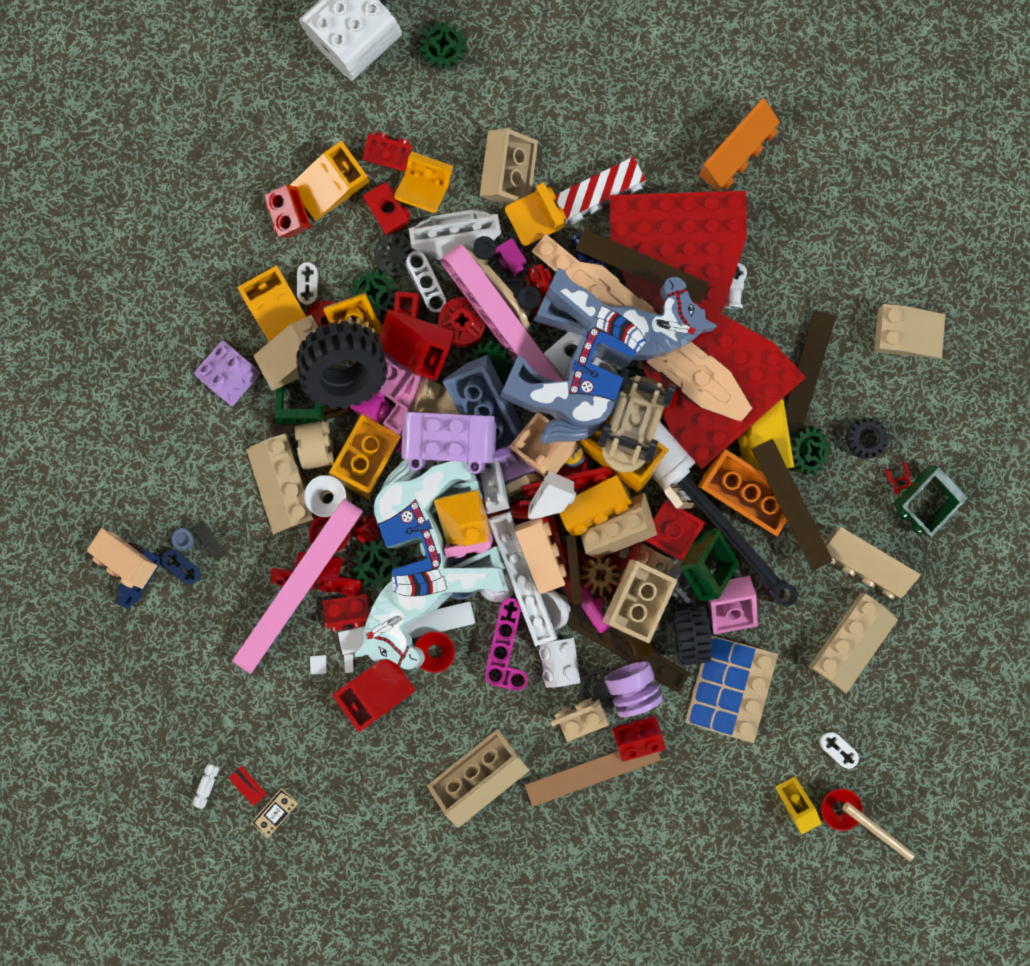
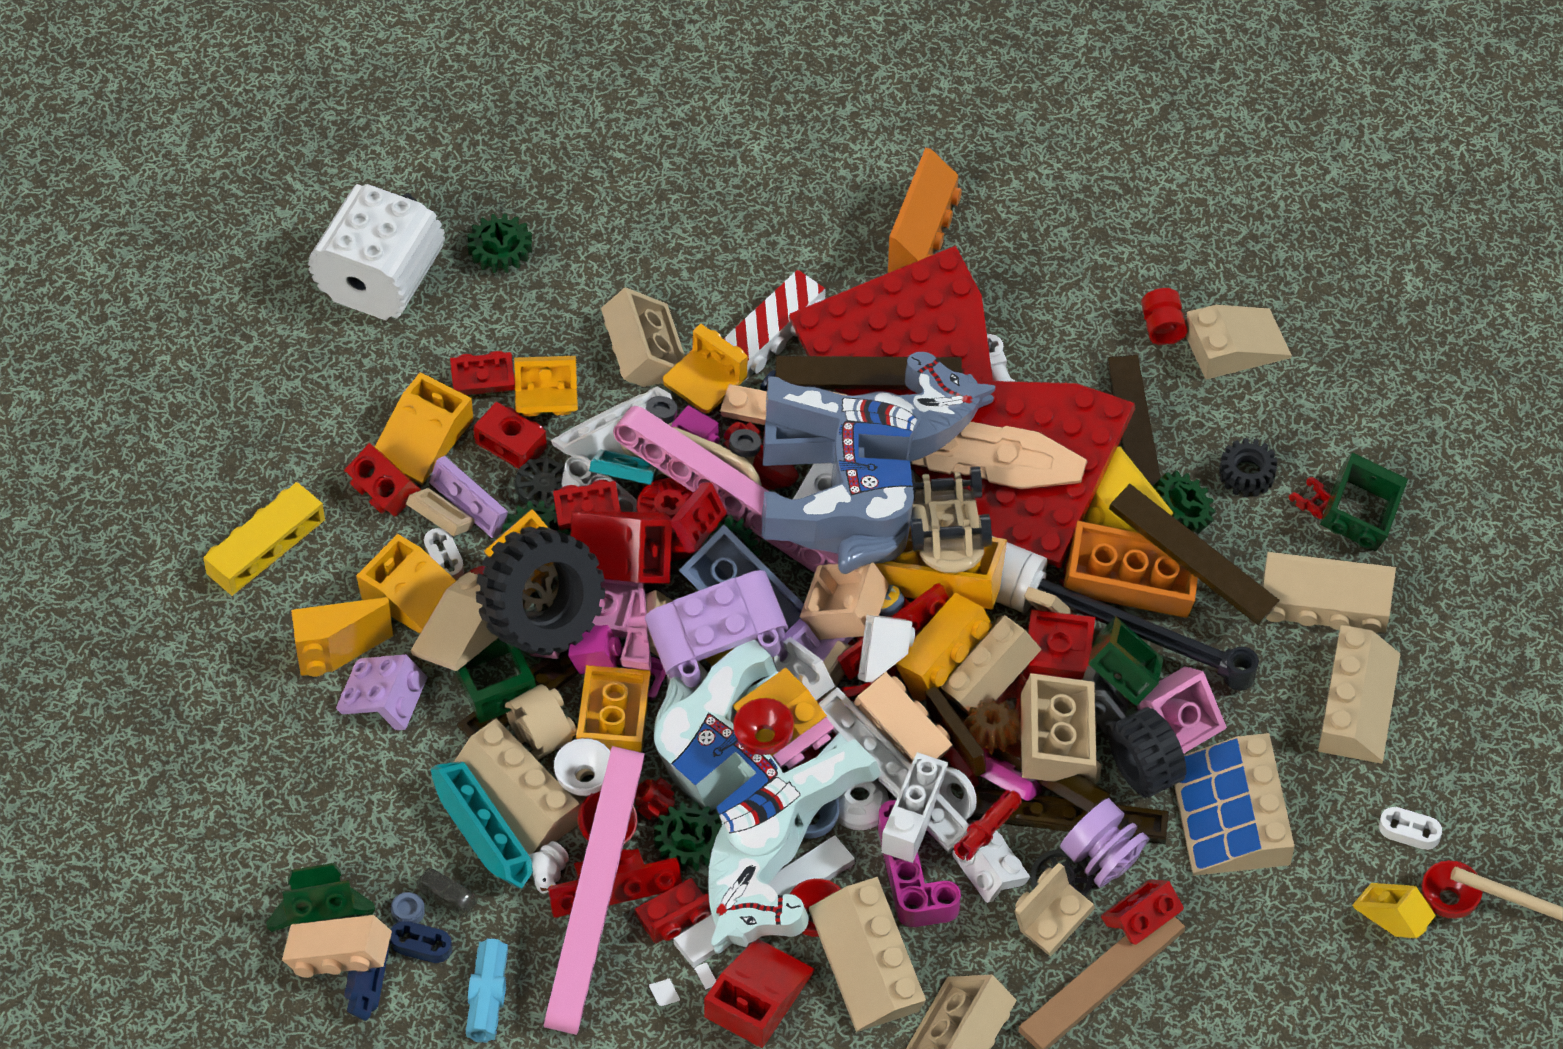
camera: 25 degrees left, 30 degrees down
(144, 520) = (317, 896): none -> dark green piece
(194, 224) = (264, 538): none -> yellow brick
(206, 325) = (339, 633): none -> light orange slope
(206, 621) = (487, 990): none -> medium azure piece
(248, 501) = (481, 823): none -> teal brick
(278, 548) = (548, 865): none -> white animal
(317, 250) = (440, 512): none -> tan tile
(339, 246) = (468, 496): none -> lavender tile
(407, 299) = (598, 496): none -> red bracket
(432, 526) = (759, 715): none -> red piece
(439, 279) = (623, 467): none -> teal tile
(448, 702) = (867, 955): none -> tan slope
(469, 349) = (697, 519): none -> red bracket
(522, 617) = (913, 808): none -> white slope
(558, 648) = (981, 832): none -> red pin
(867, 299) = (1164, 316): none -> red wheel

